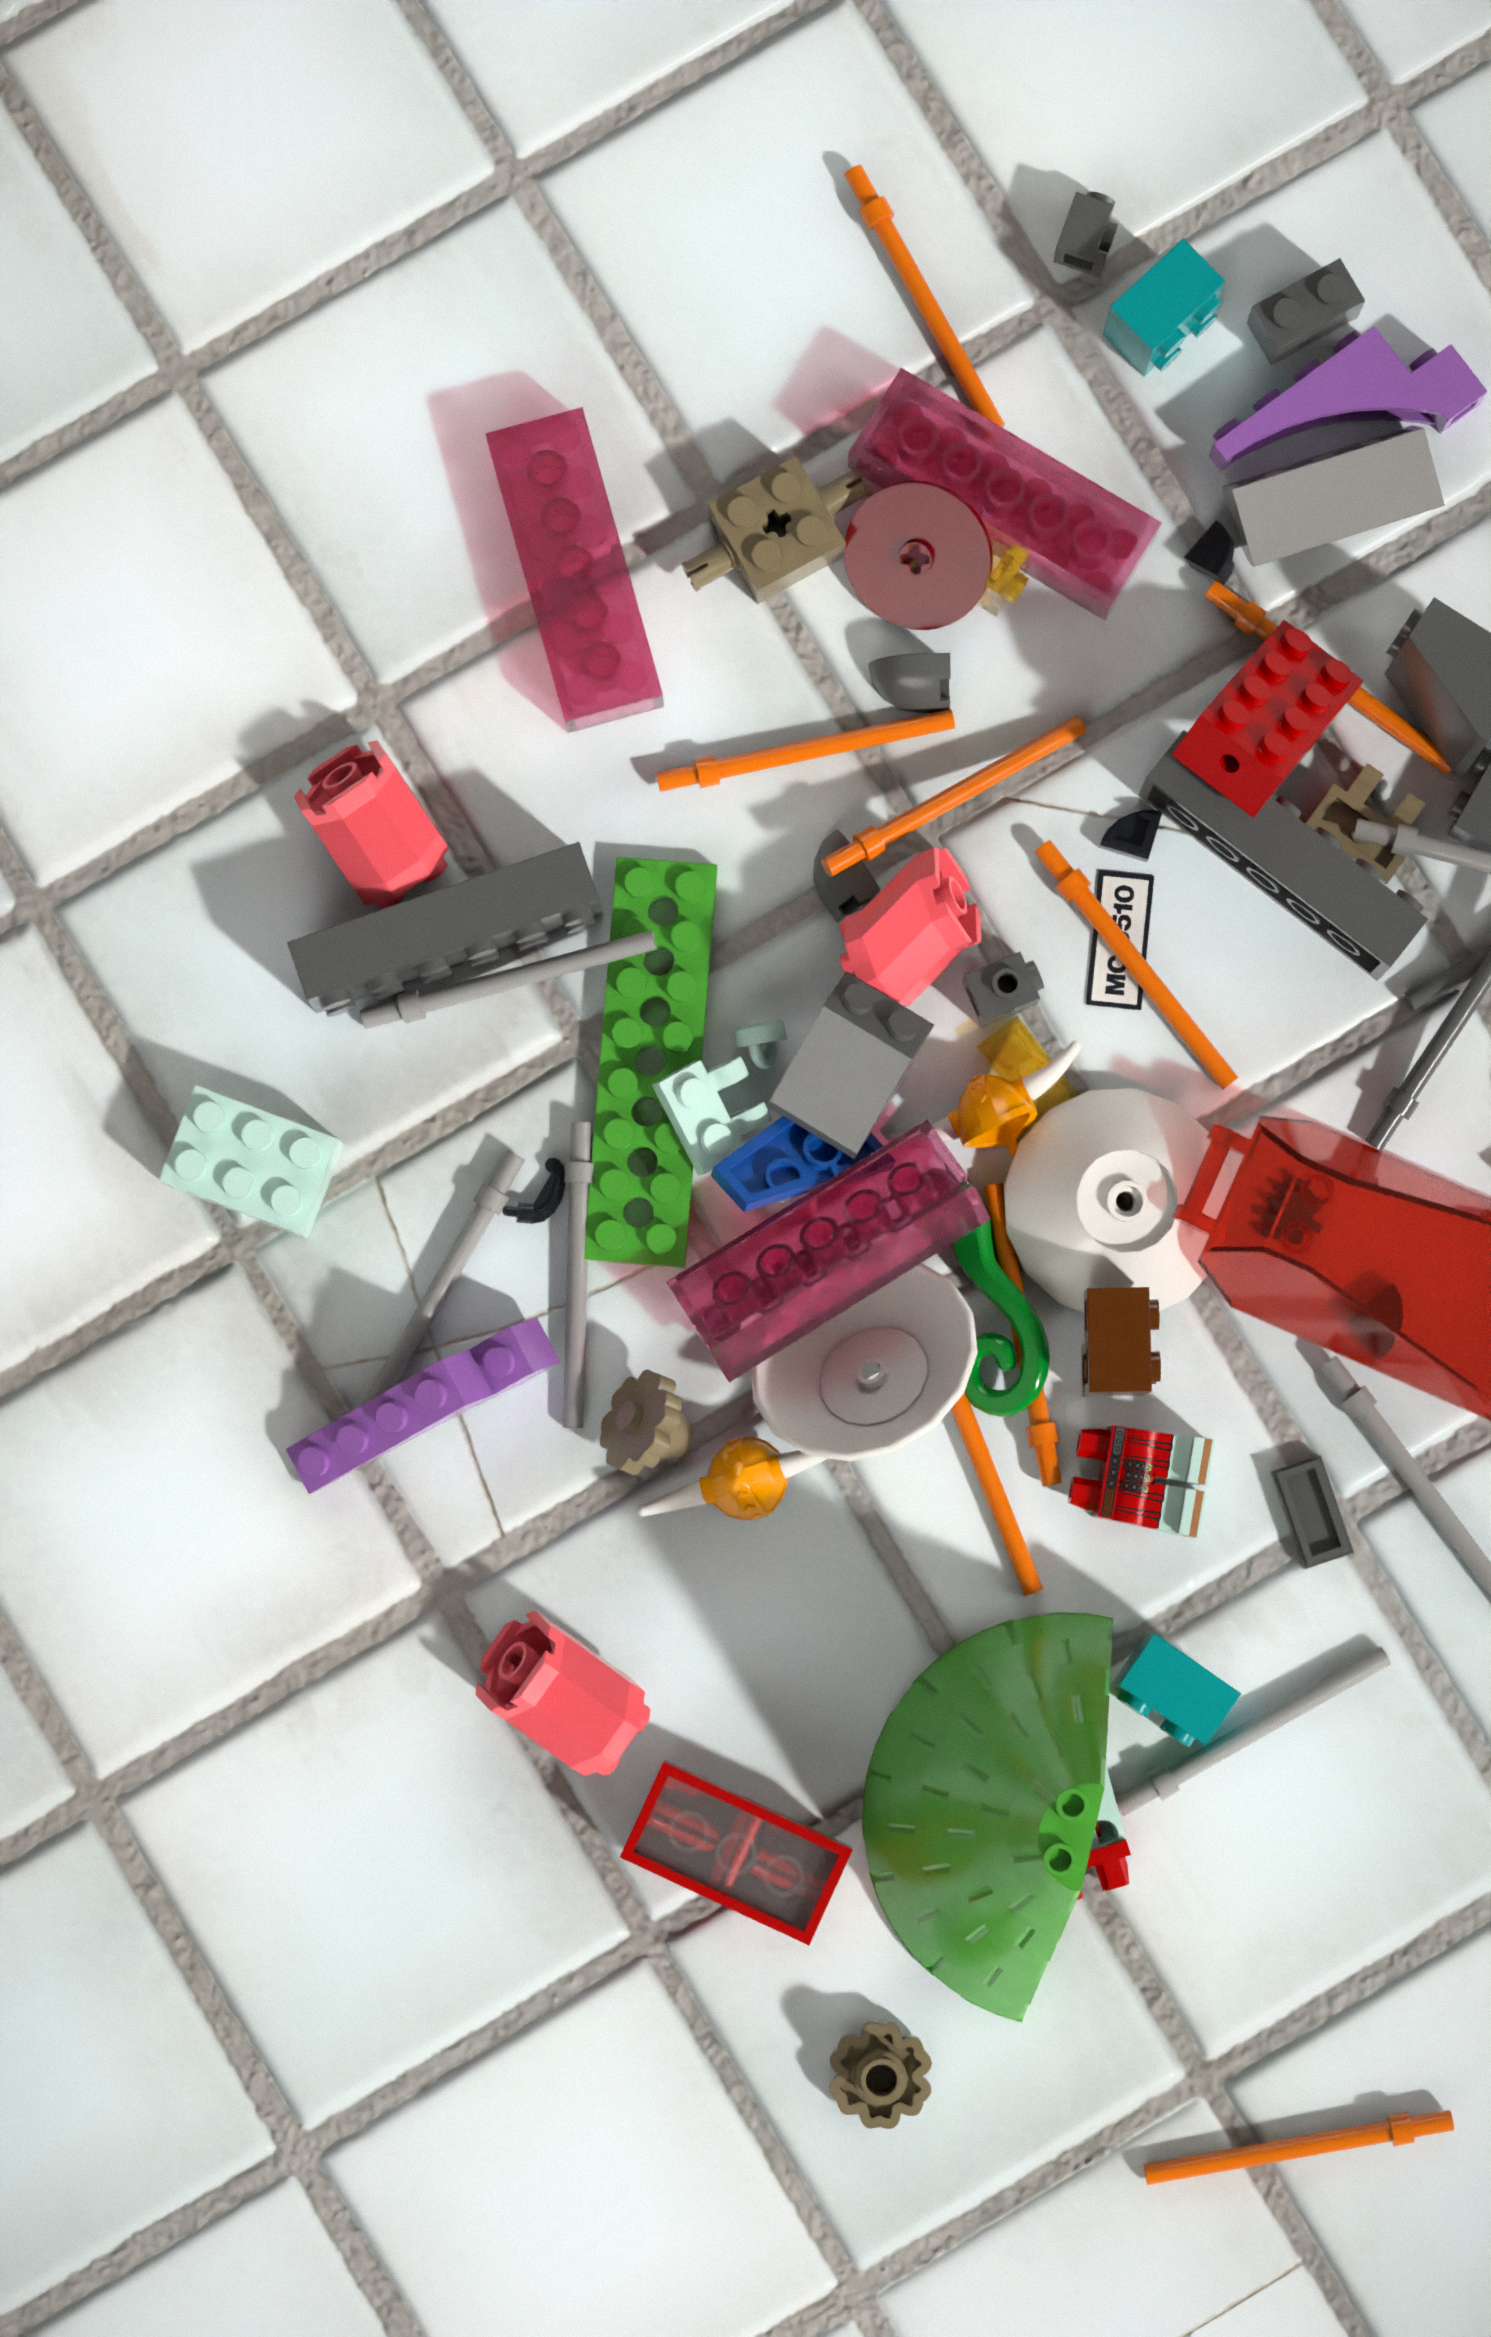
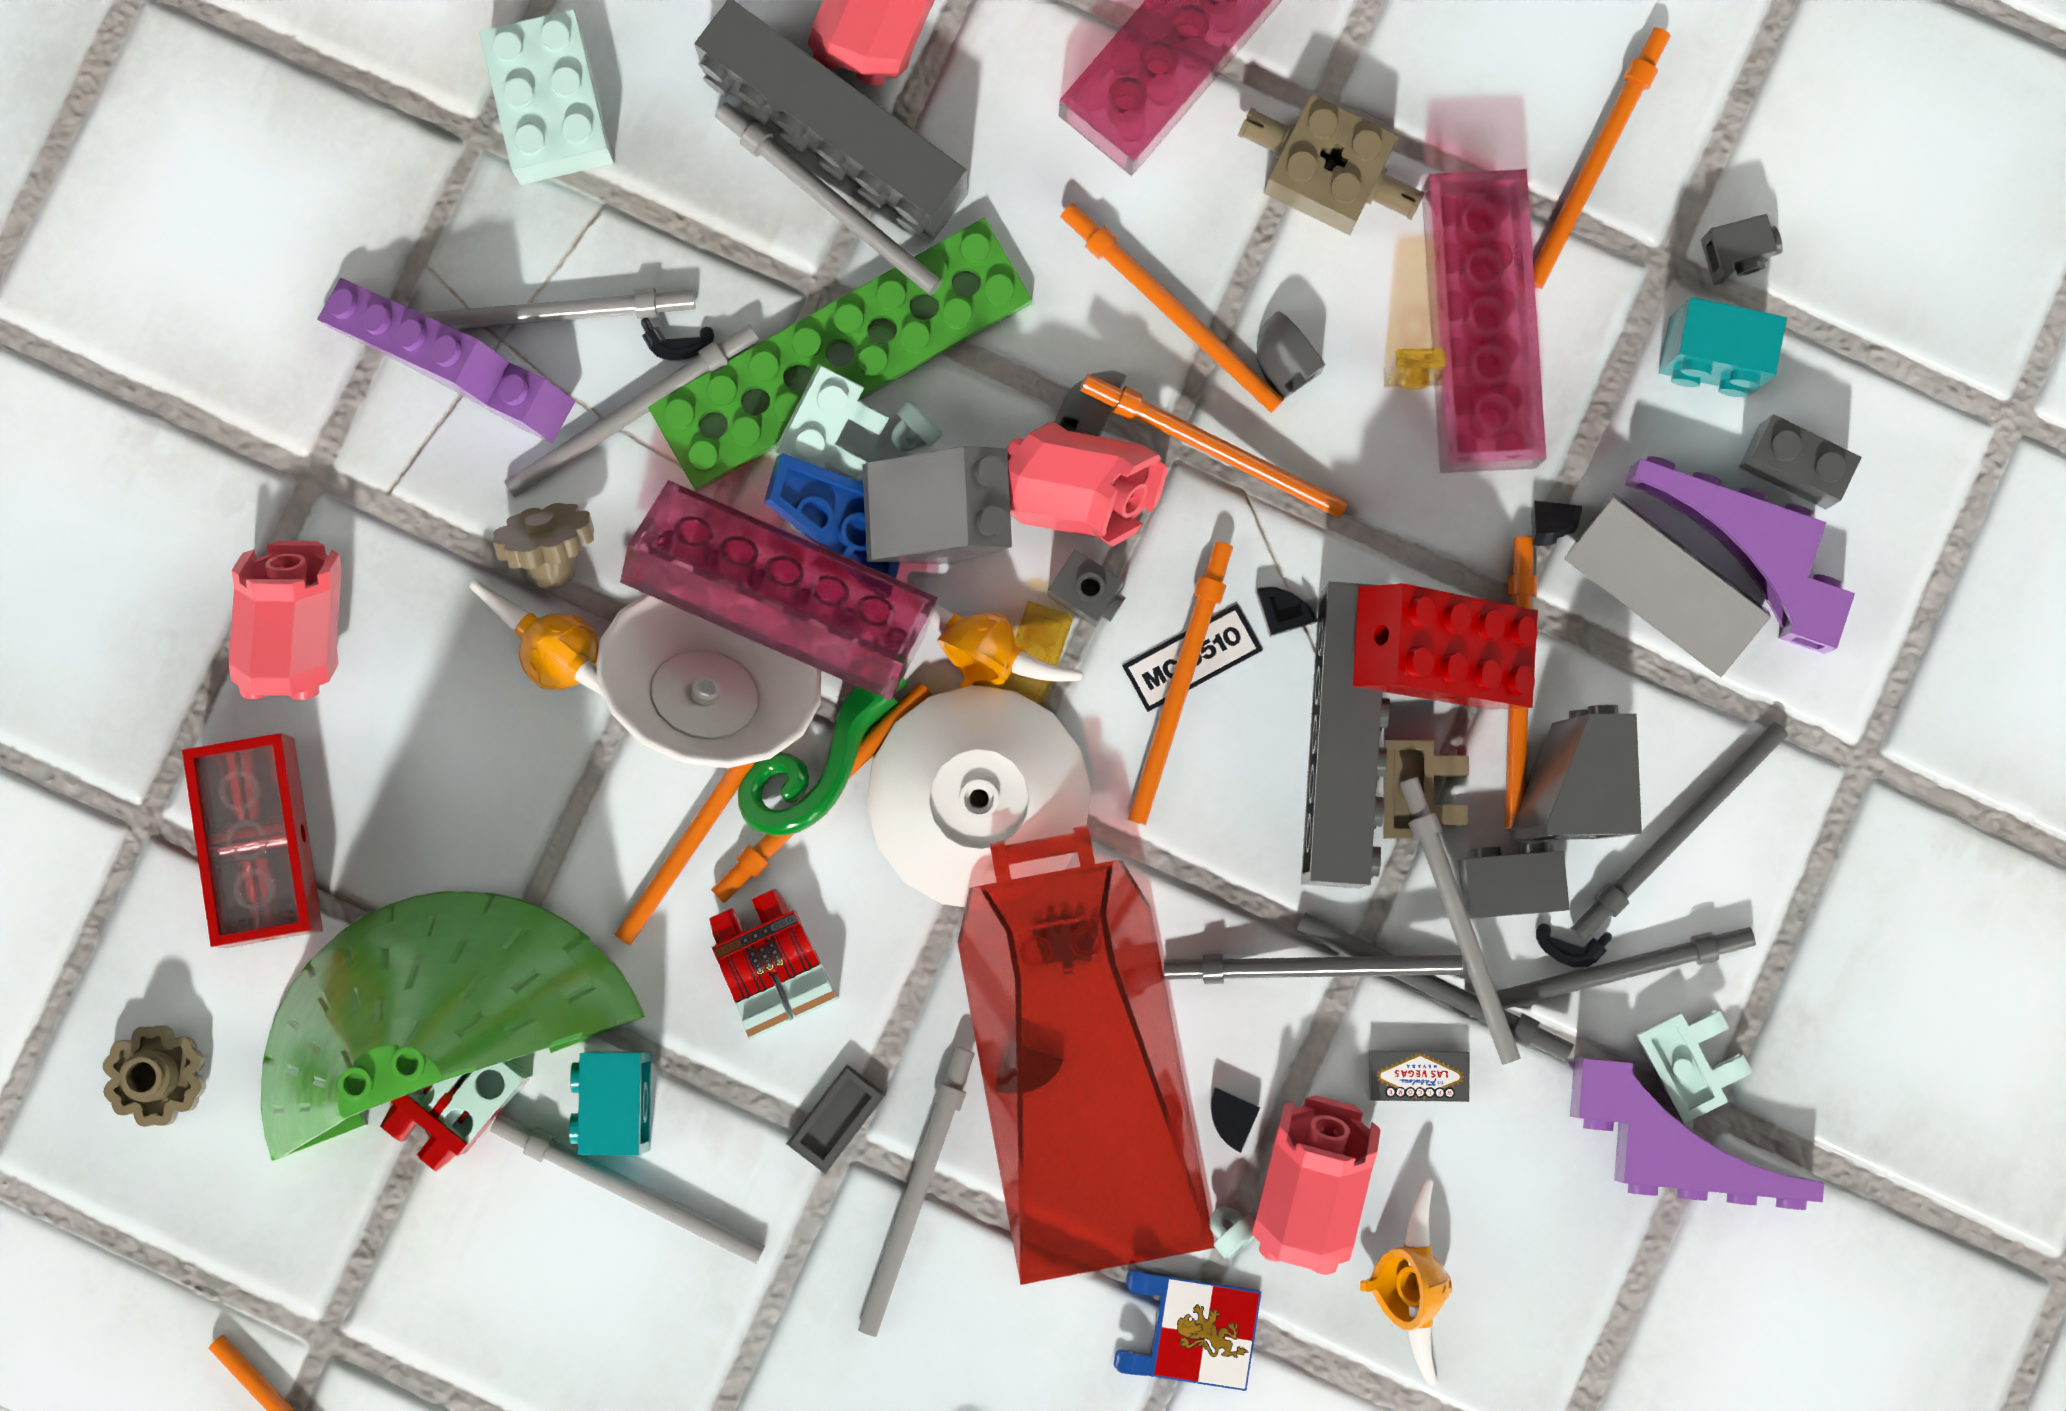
camera: 45 degrees right, 0 degrees up
(944, 529) = (1421, 286): piece -> none
(1118, 1342) = (859, 868): reddish brown brick -> none

